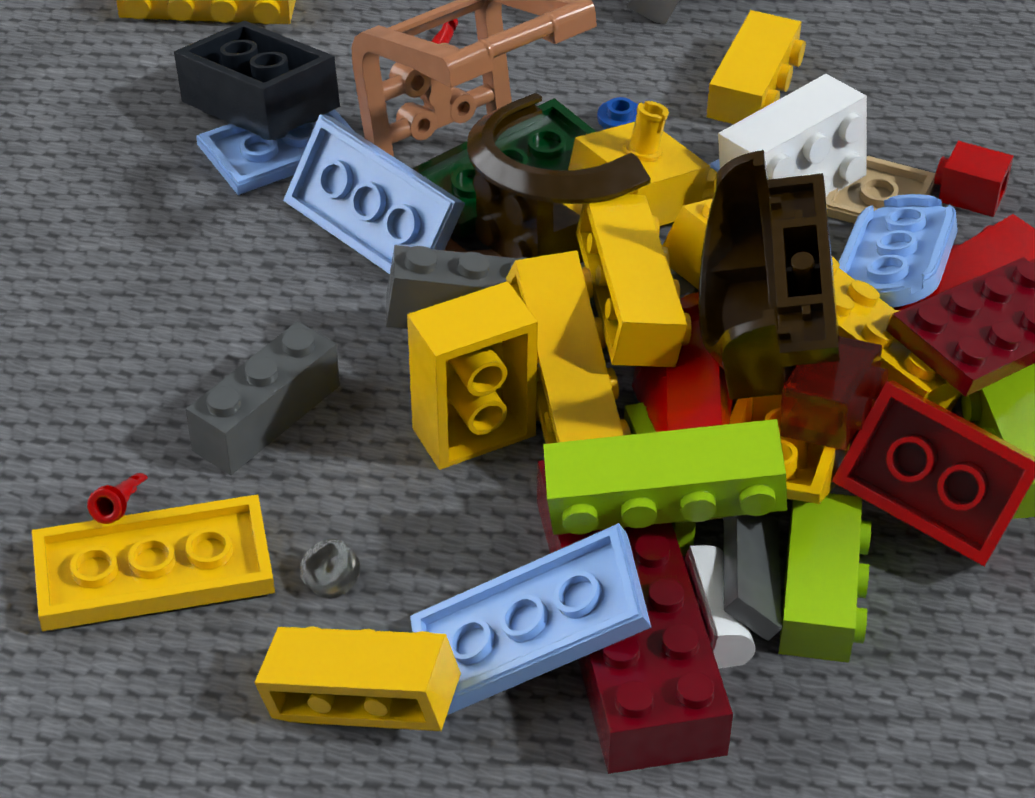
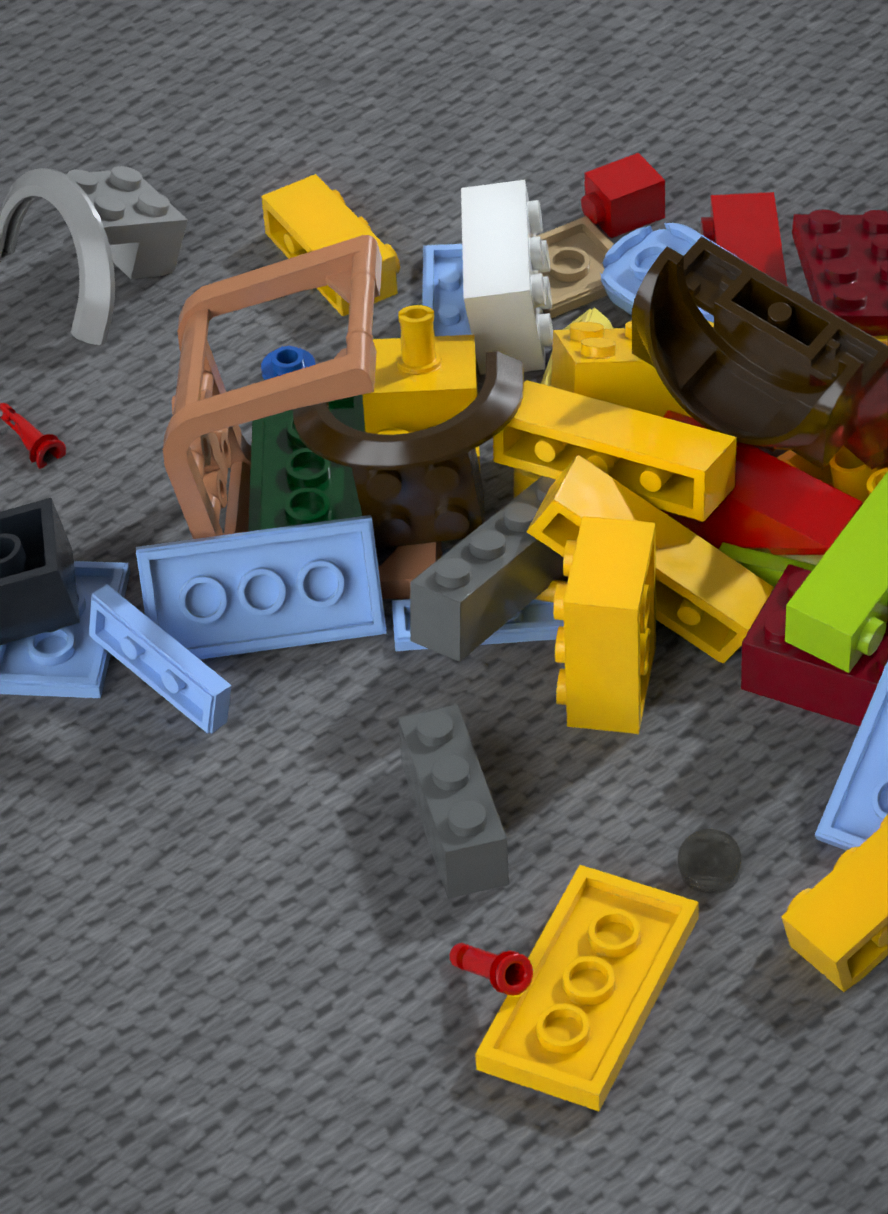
camera: 50 degrees left, 0 degrees up
(270, 192) = (159, 659): none -> light blue tile

